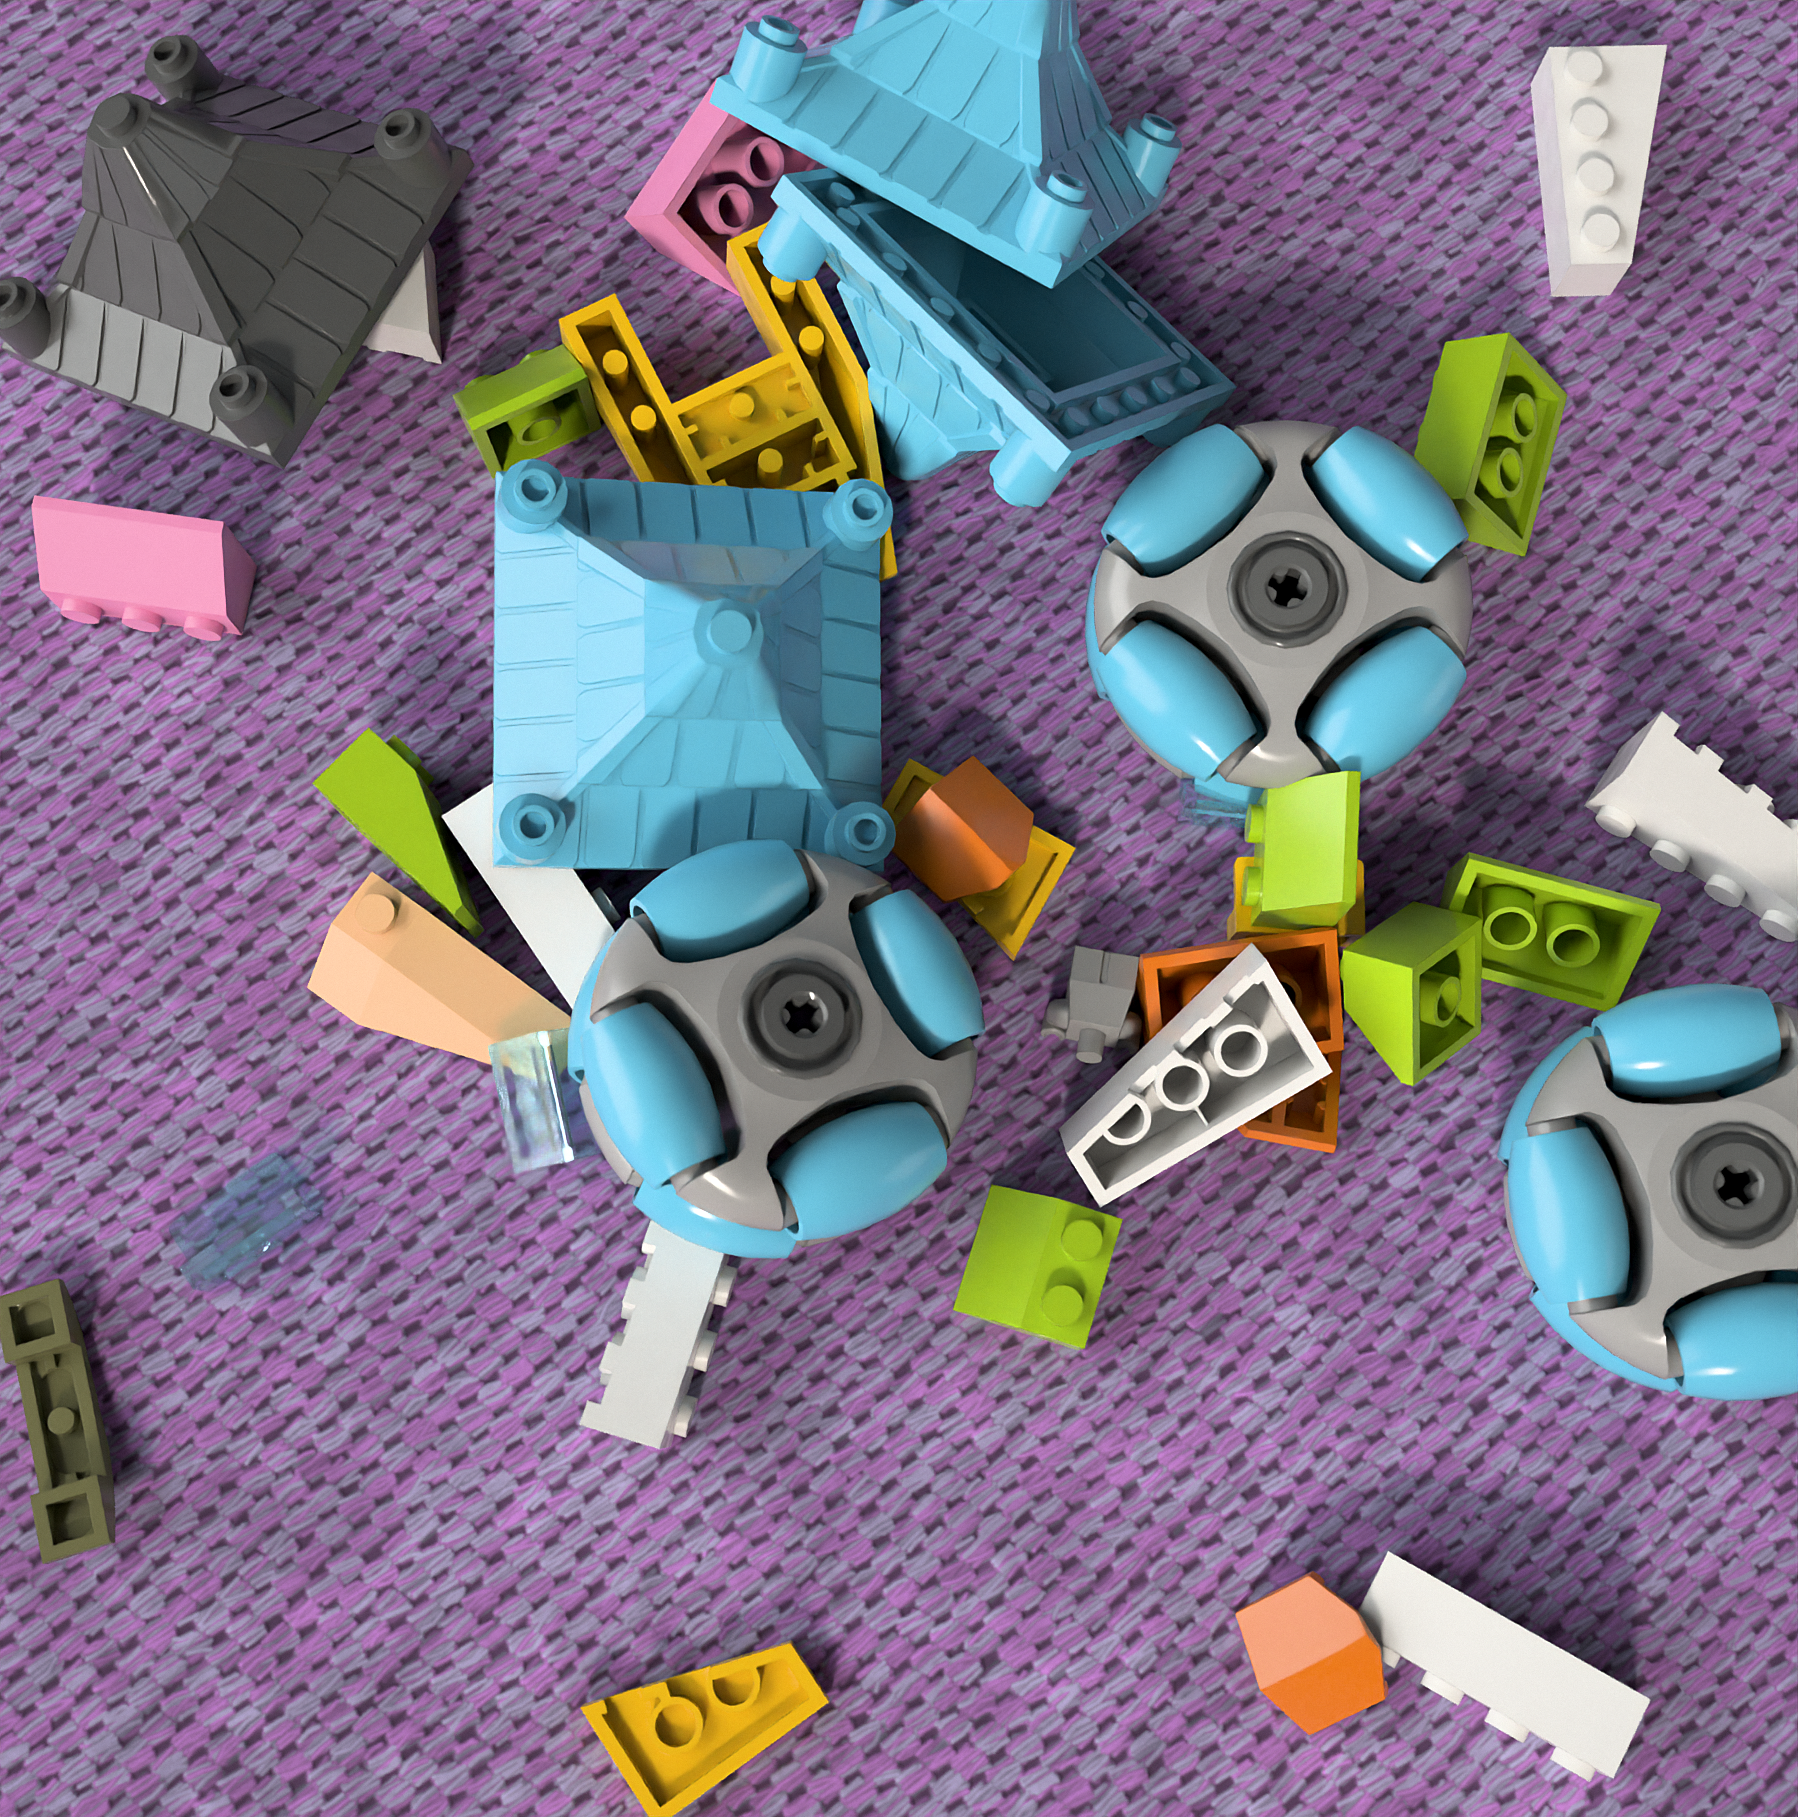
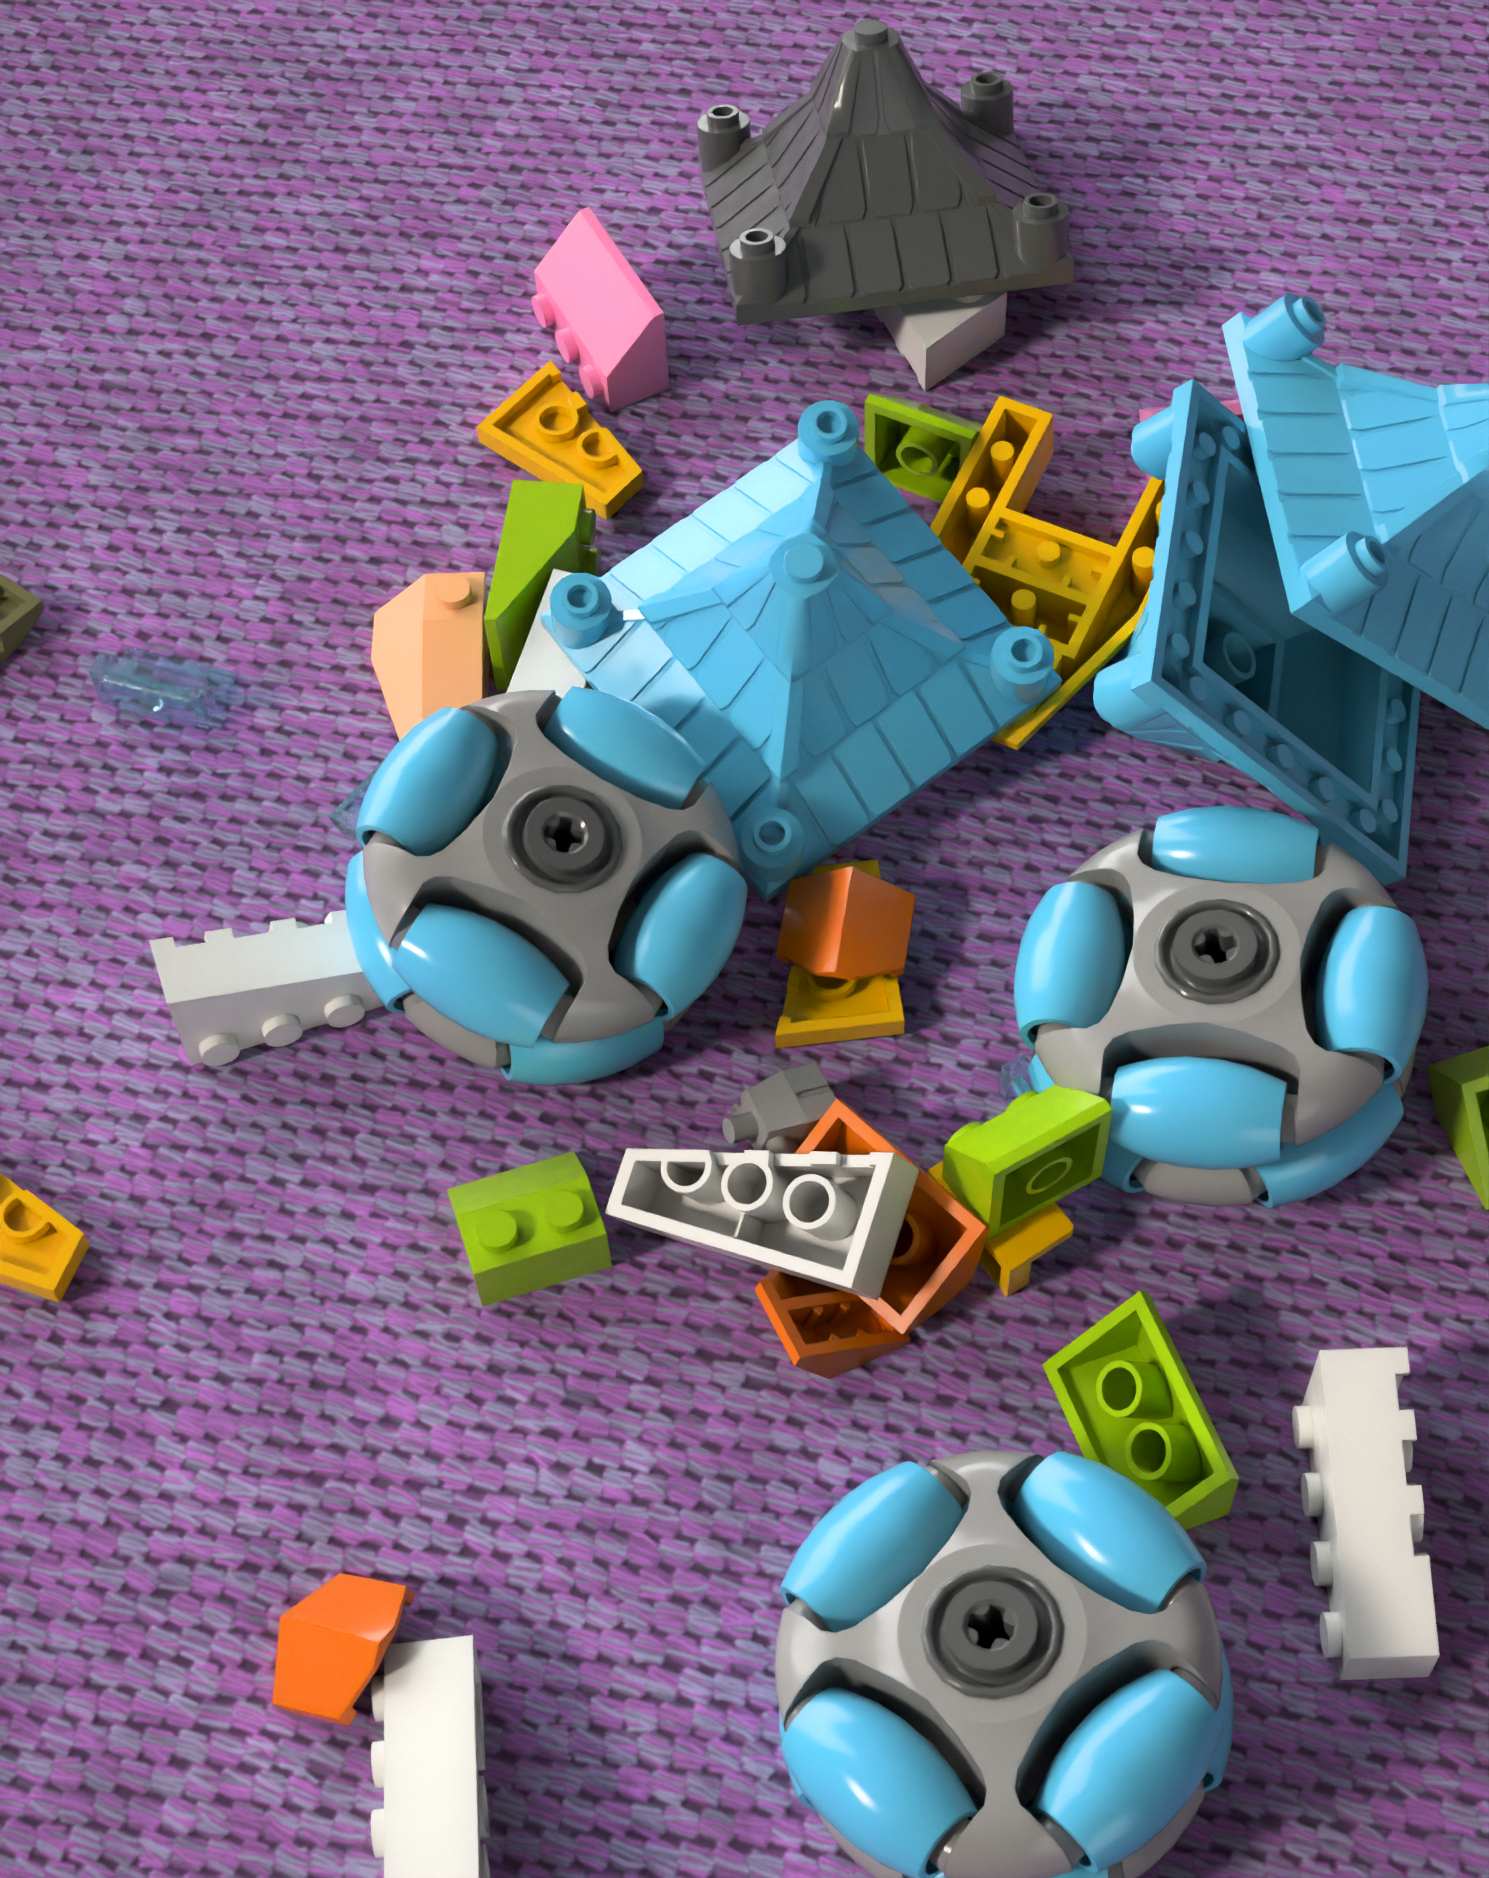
camera: 60 degrees right, 20 degrees down
(246, 703) = (559, 441): none -> yellow wing
(1416, 987) = (996, 1345): lime slope -> none

